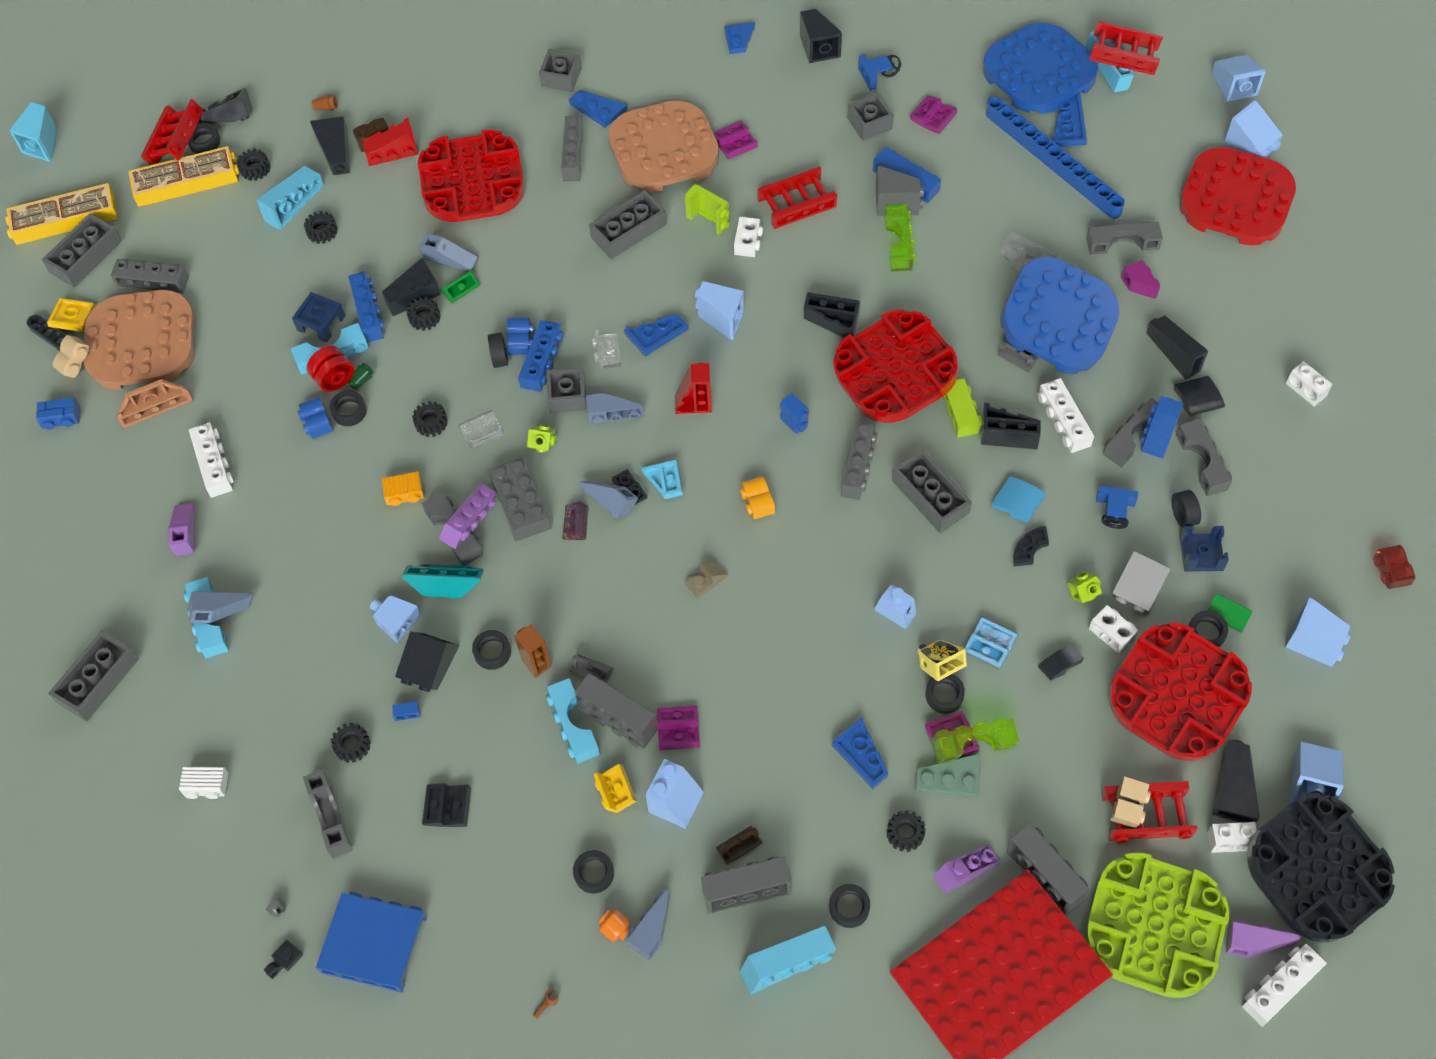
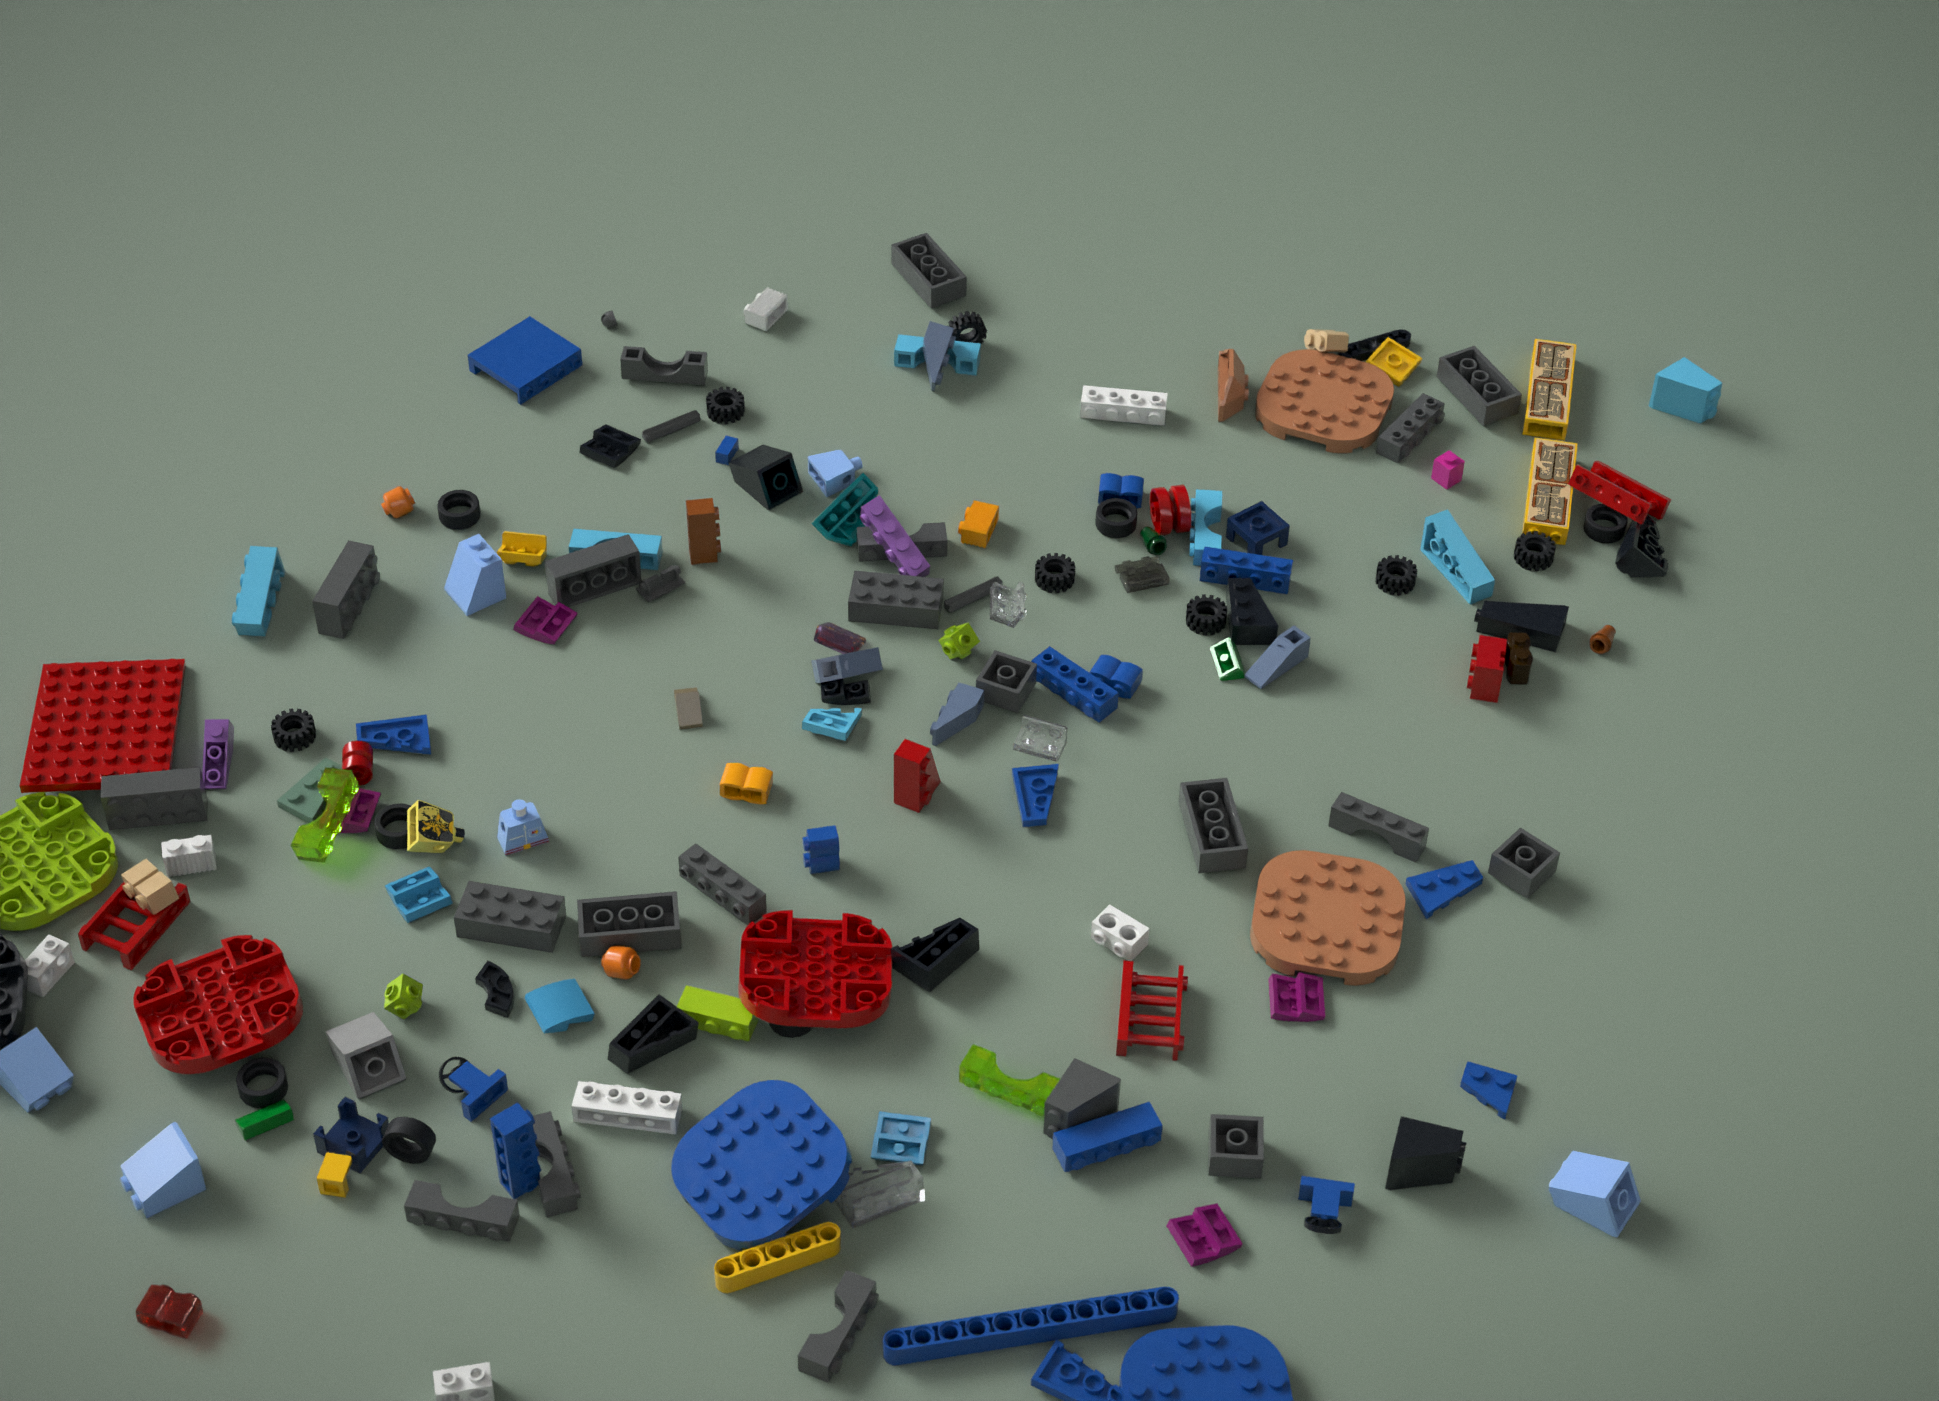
camera: 115 degrees right, 15 degrees down
(58, 413) = (1262, 322): blue brick -> none
(169, 604) = (969, 321): none -> black tyre
(182, 530) = (1049, 362): medium lavender slope -> none
(190, 236) = (1447, 469): none -> dark pink brick
(285, 957) = (560, 313): black plate -> none
(396, 772) = (671, 426): none -> dark grey axle
(403, 363) = (1142, 574): none -> clear smoke plate
(471, 176) = (1392, 722): red plate -> none
(476, 458) = (970, 595): none -> dark grey axle
(495, 663) = (743, 534): black tyre -> none
(497, 350) = (1106, 634): black tyre -> none
(546, 1003) = (375, 444): dark orange hand -> none
(649, 933) = (371, 525): sand blue slope -> none
(707, 205) = (1182, 907): lime panel -> none
(720, 307) = (1018, 850): light blue slope -> none
(739, 844) = (393, 611): dark brown hinge -> none
(849, 922) = (268, 670): black tyre -> none
(913, 754) = (358, 758): none -> red wheel
(963, 479) = (621, 962): none -> orange head
(973, 568) = (510, 916): none -> dark grey brick
(977, 274) = (901, 1138): none -> dark azure slope
(1060, 661) = (343, 936): black slope -> none
(1072, 813) = (189, 855): none -> white brick
(1110, 632) = (337, 998): white brick -> none
(1127, 297) = (768, 1266): none -> yellow beam
(1140, 280) = (757, 1303): magenta slope -> none
(1178, 346) = (628, 1273): black slope -> none
(1199, 395) = (546, 1263): black slope -> none
(1236, 785) = (89, 1002): black slope -> none
(1238, 539) = (333, 1174): none -> yellow panel

